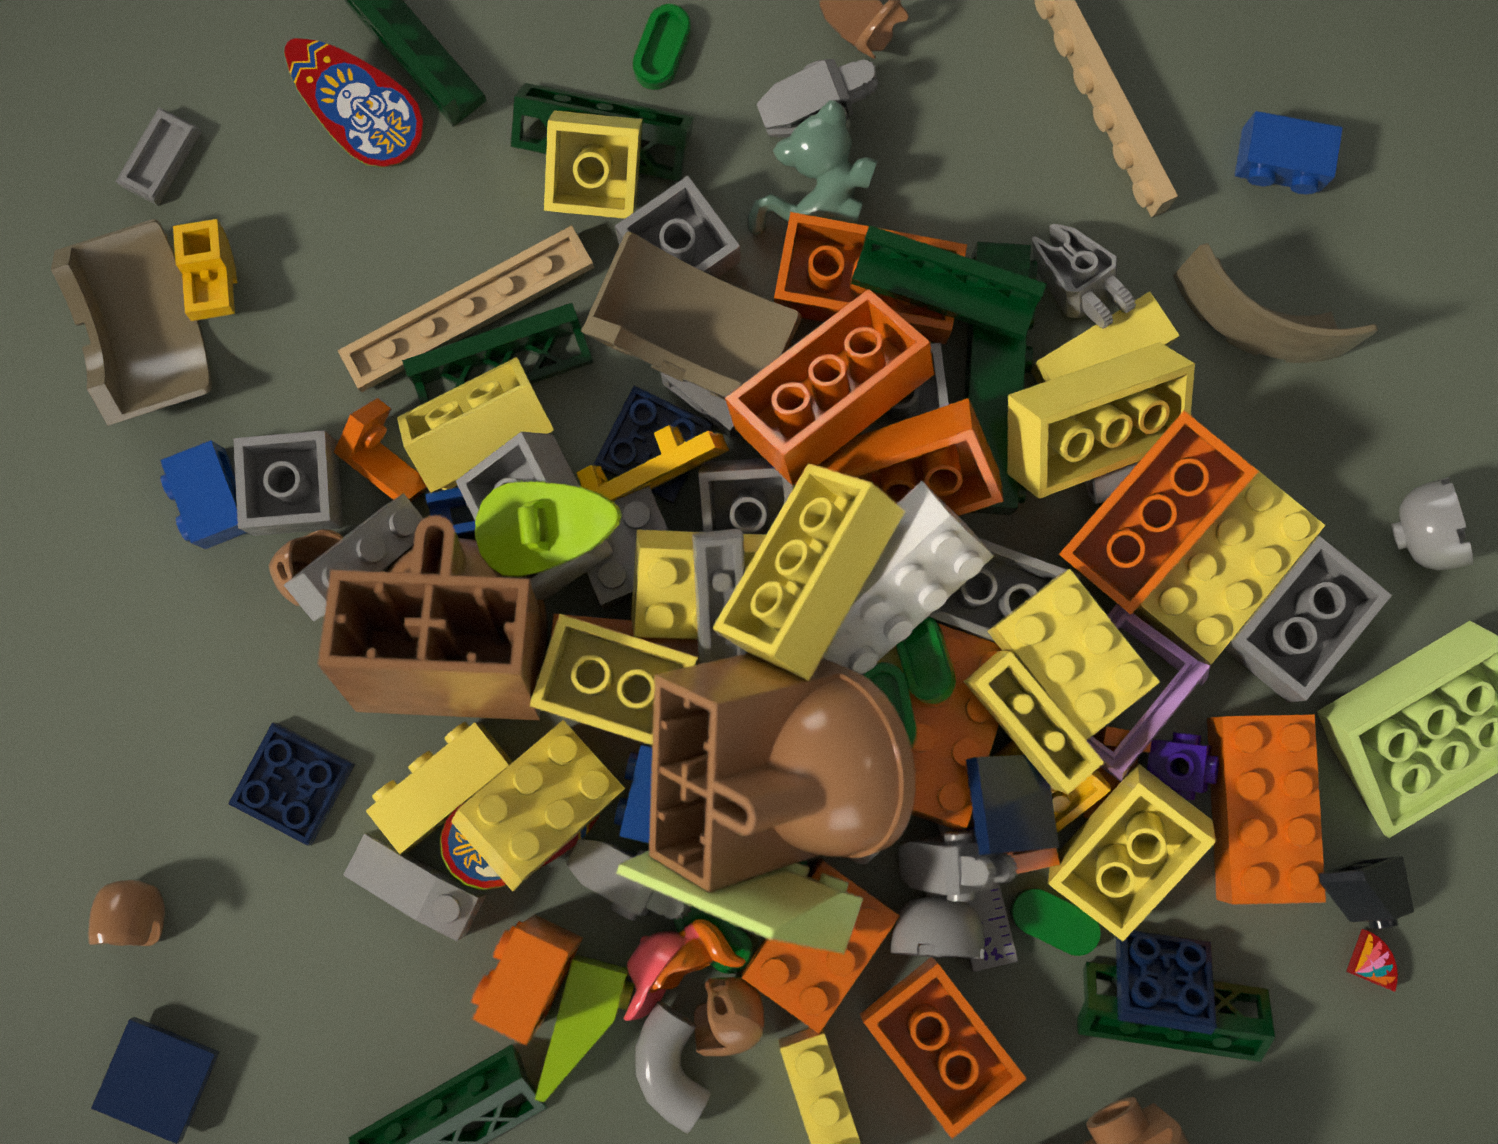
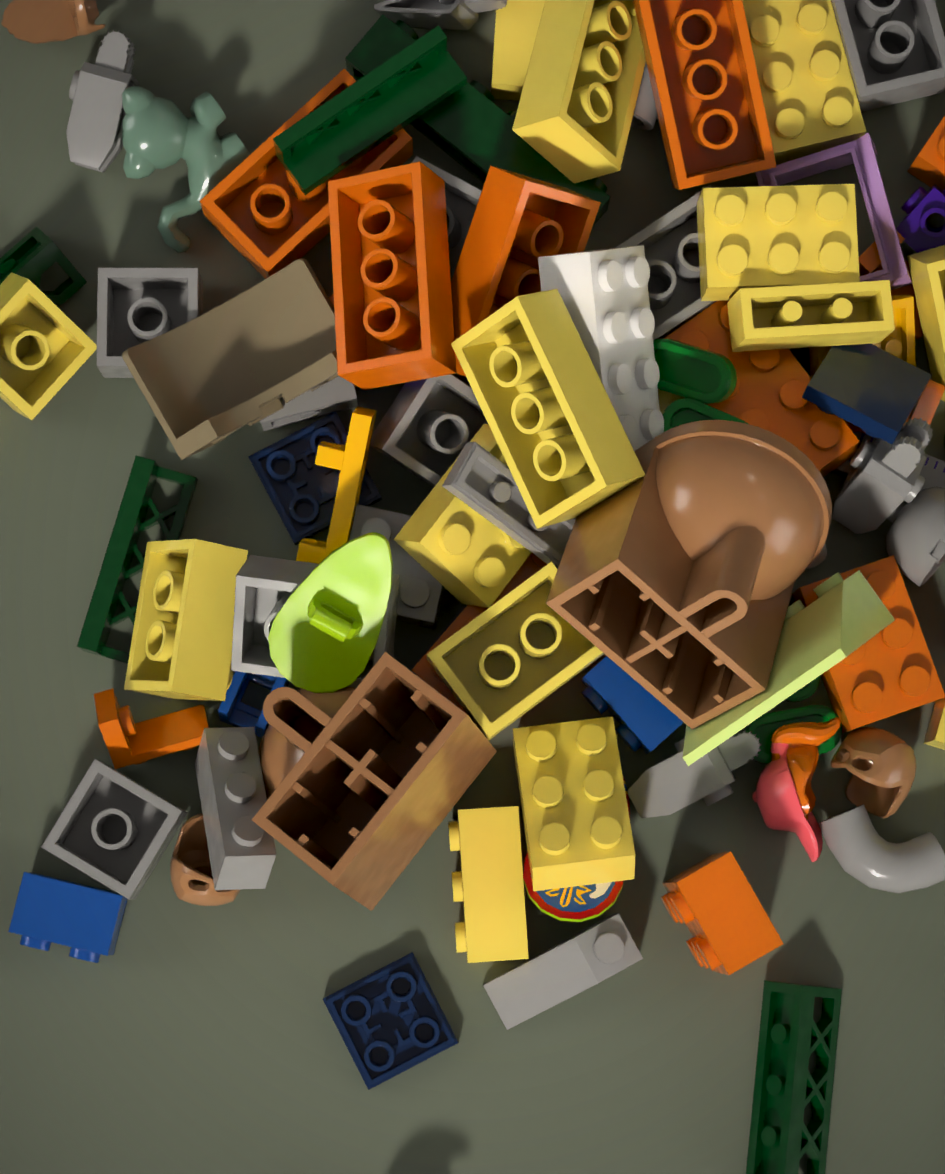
camera: 60 degrees left, 0 degrees up
(467, 308) = (65, 557): tan plate -> none
(586, 1011) = (790, 900): lime slope -> none

